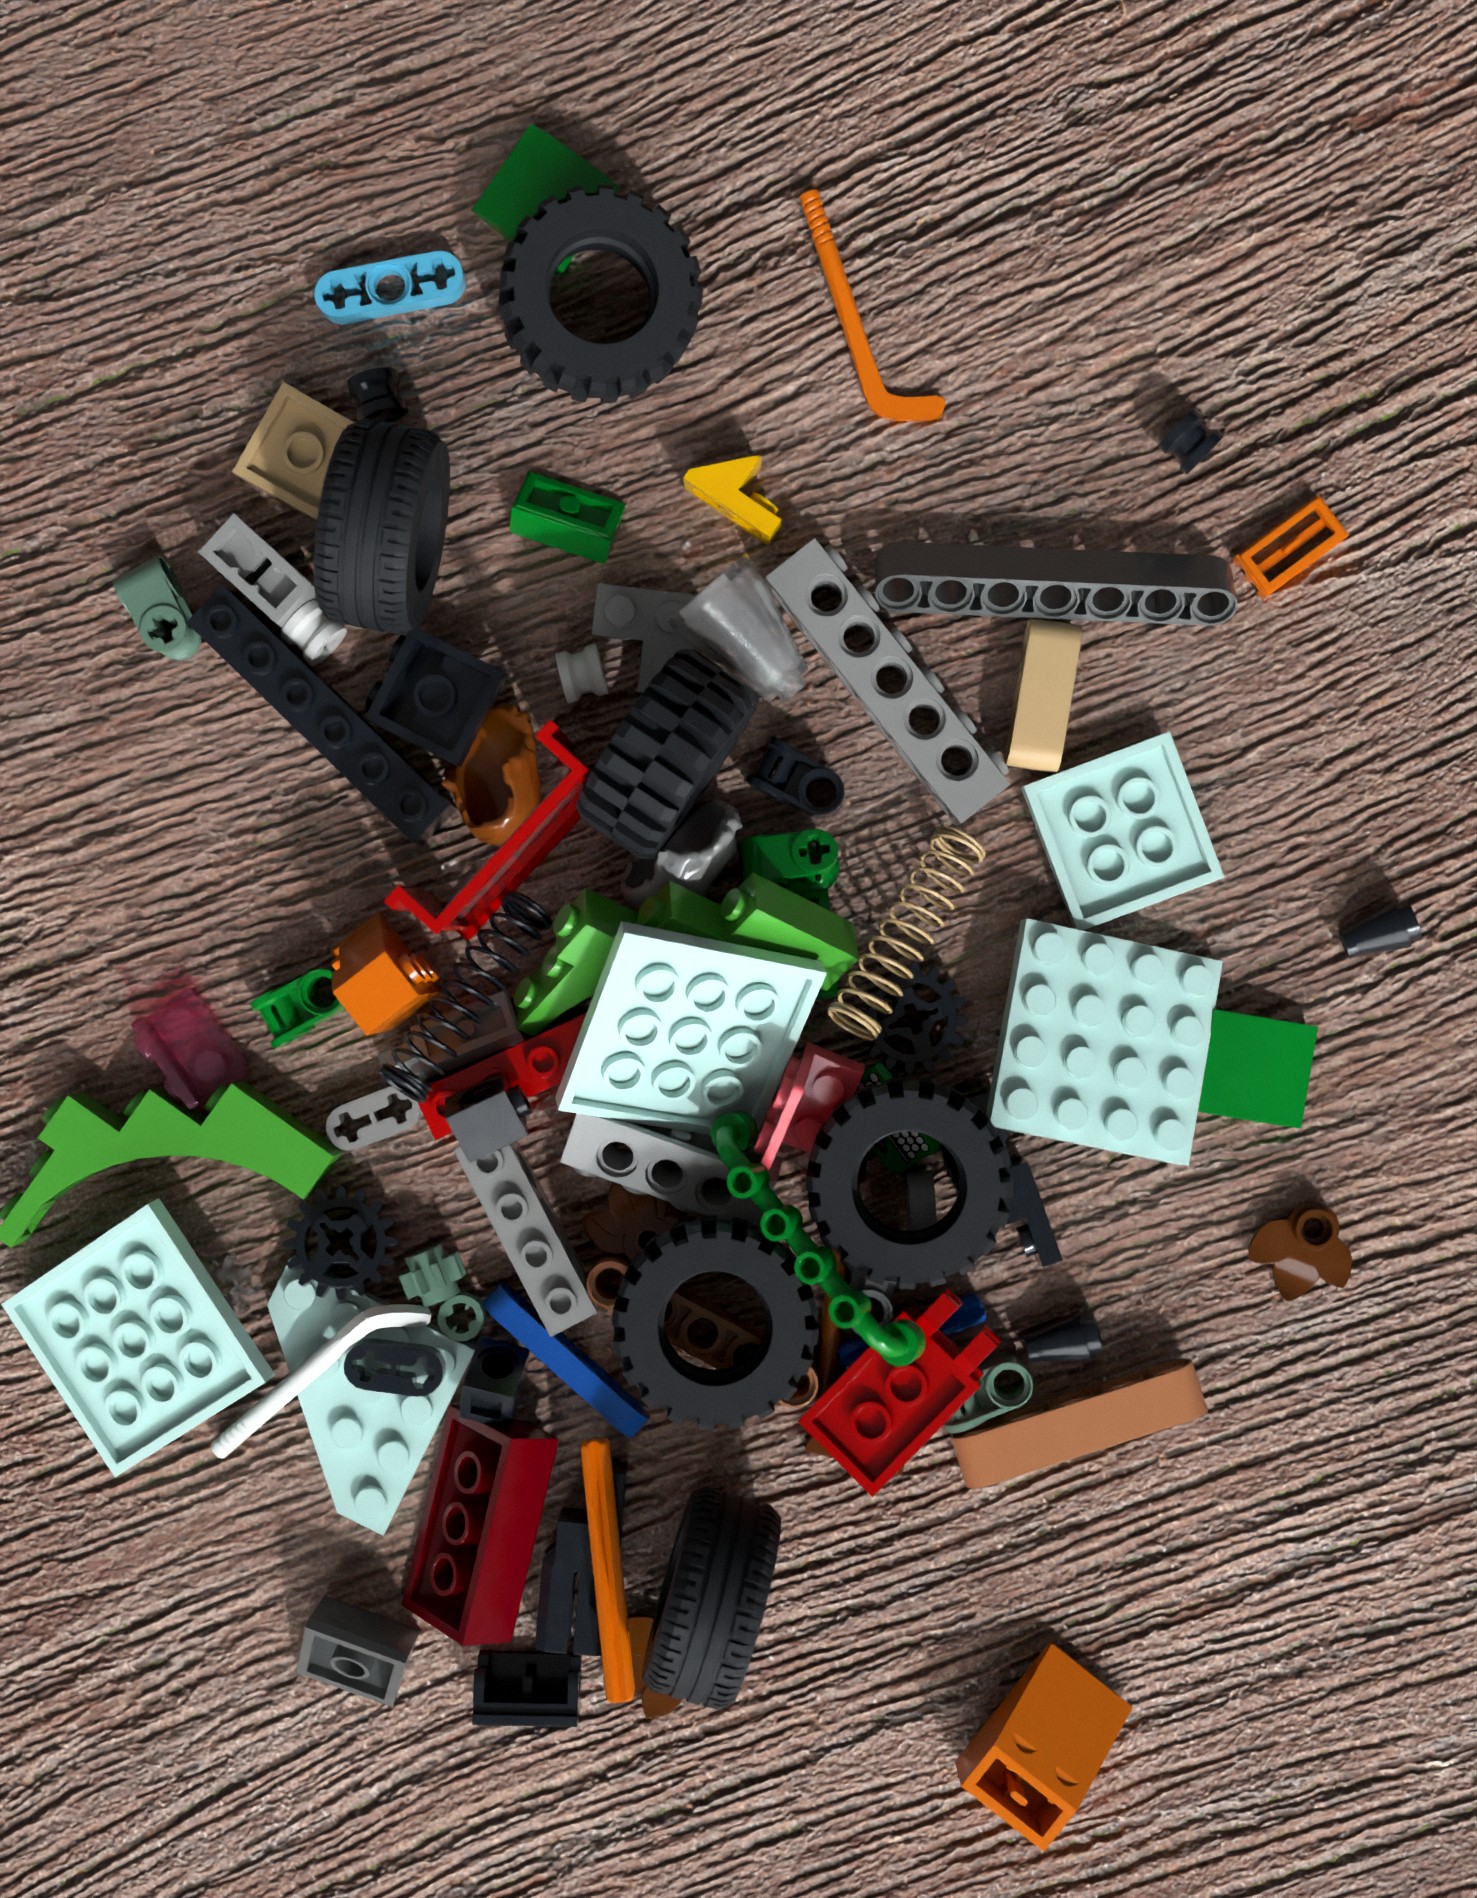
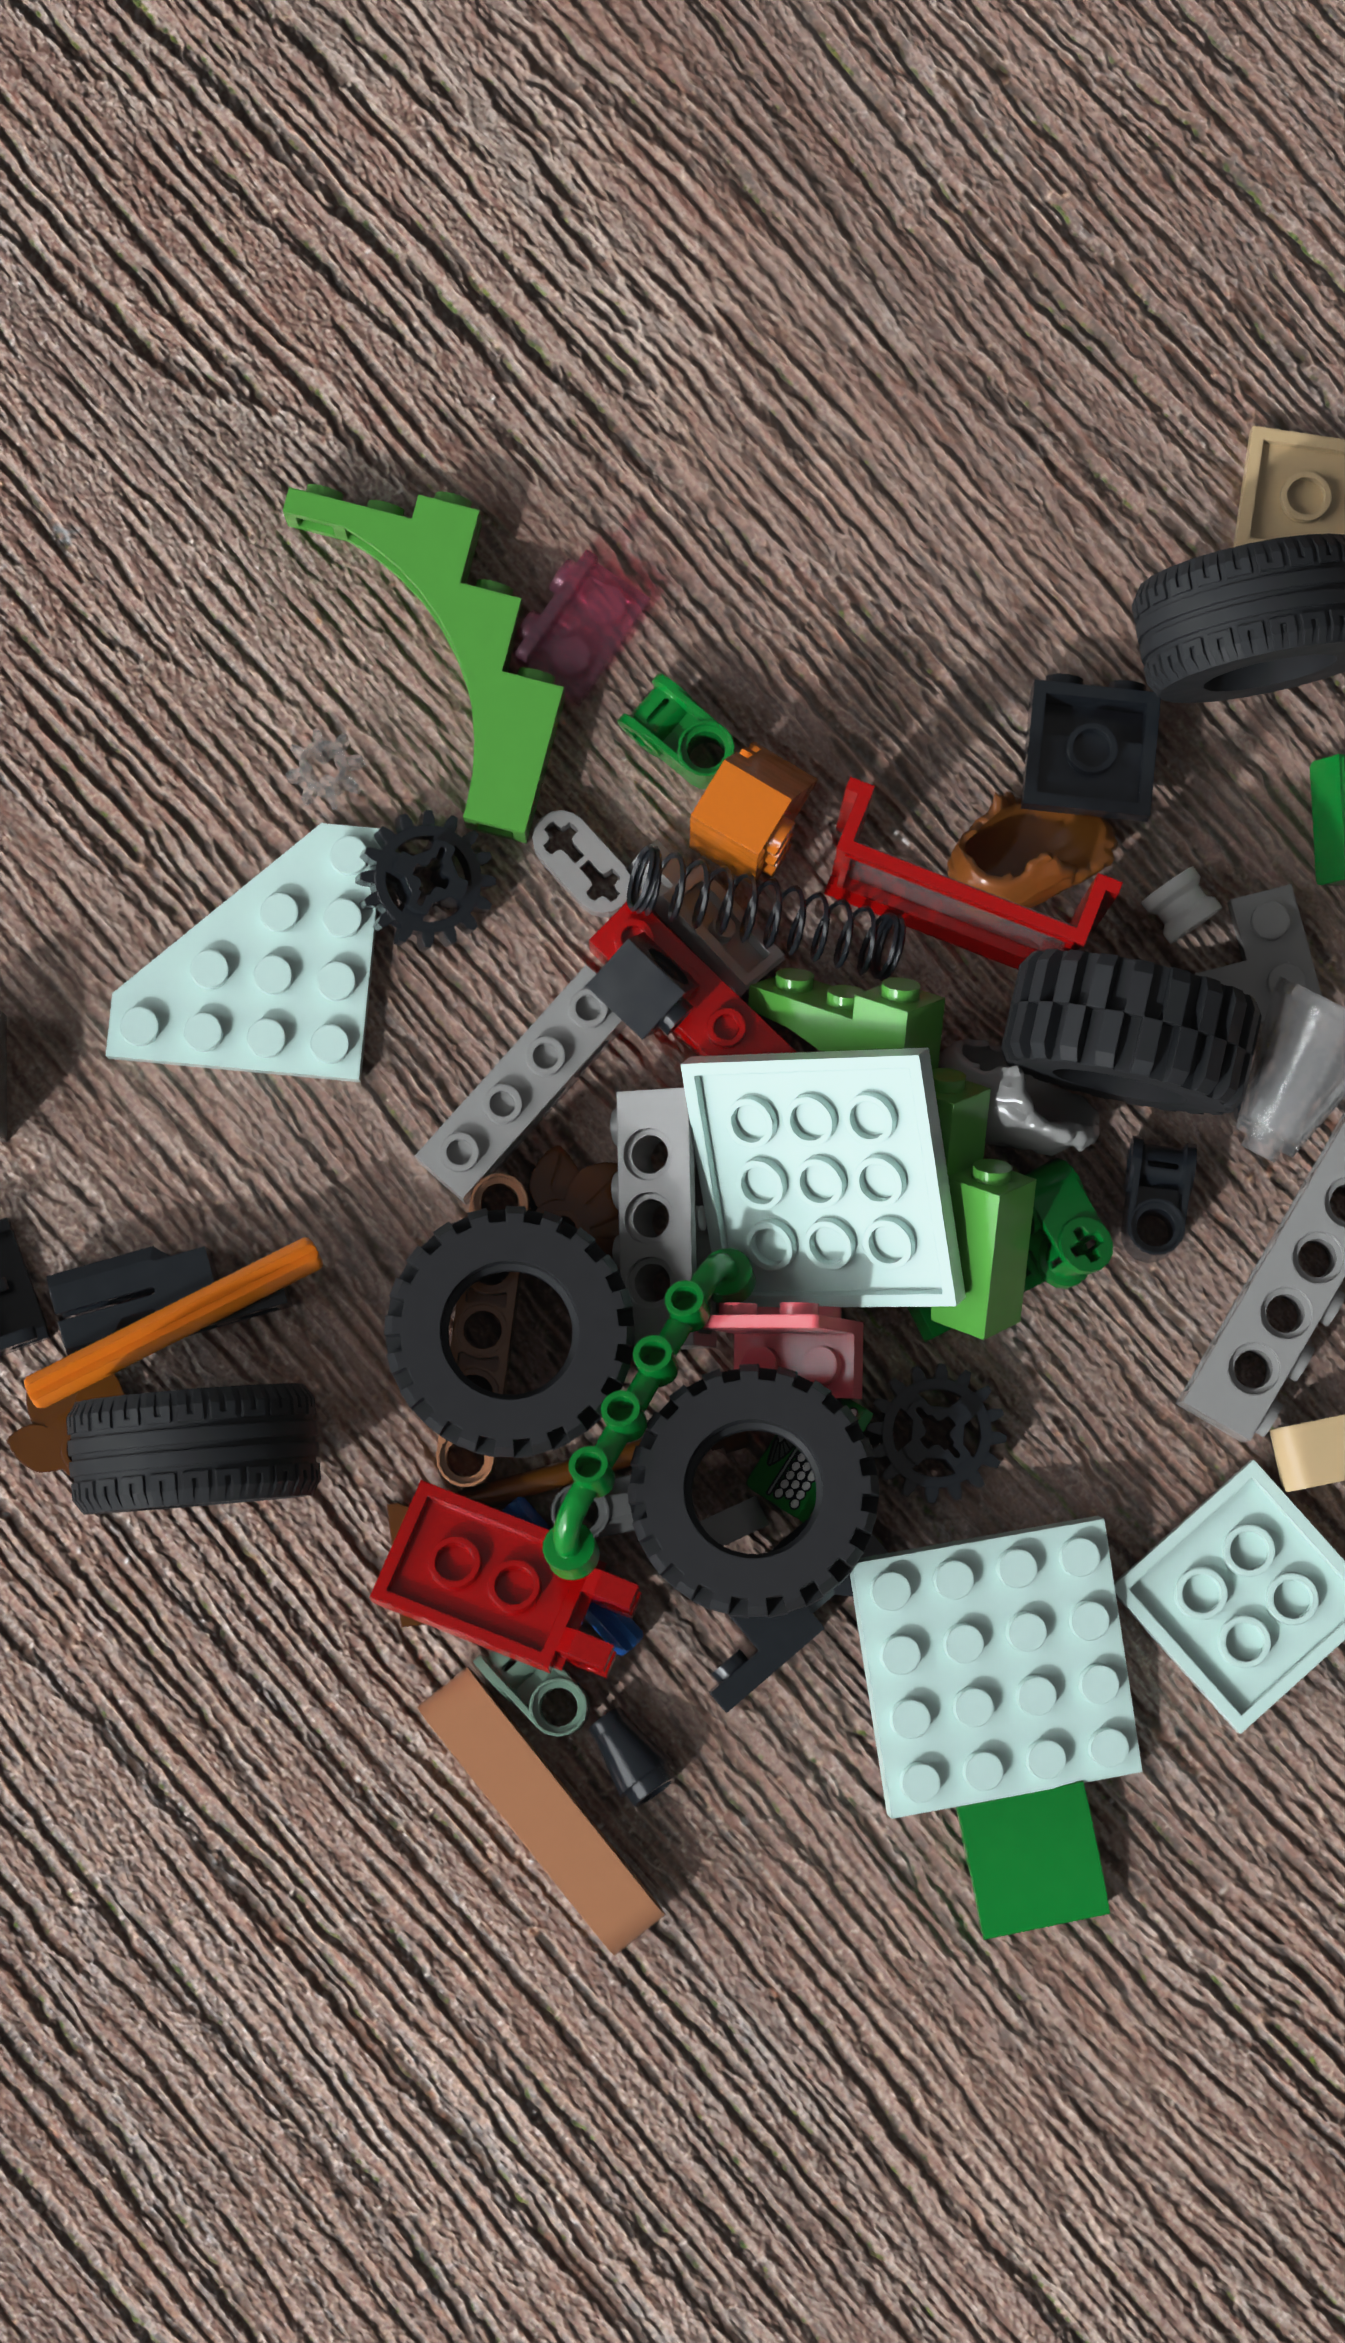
camera: 70 degrees right, 5 degrees down
(138, 1338) = (232, 691): light aqua plate -> none
(155, 603) = (1071, 398): sand green piece -> none
(258, 570) = (1152, 502): light grey brick -> none
(313, 633) = (1107, 585): white wheel -> none
(322, 715) = (1017, 632): black brick -> none
(374, 1318) = (343, 935): white piece -> none
(395, 1380) = (294, 998): black beam -> none
(432, 1275) = (428, 997): sand green gear -> none
(476, 1323) = (396, 1031): sand green bush -> none
(479, 1528) = (161, 1161): dark red slope -> none
(494, 1382) = (334, 1114): black brick -> none
(567, 1361) = (388, 1188): blue beam -> none
(949, 852) = (1145, 1399): tan piece -> none
(1043, 1746) = (153, 1914): orange slope -> none
(1300, 1258) = (831, 1995): reddish brown plate -> none
(1382, 930) = (1250, 1943): black cone -> none

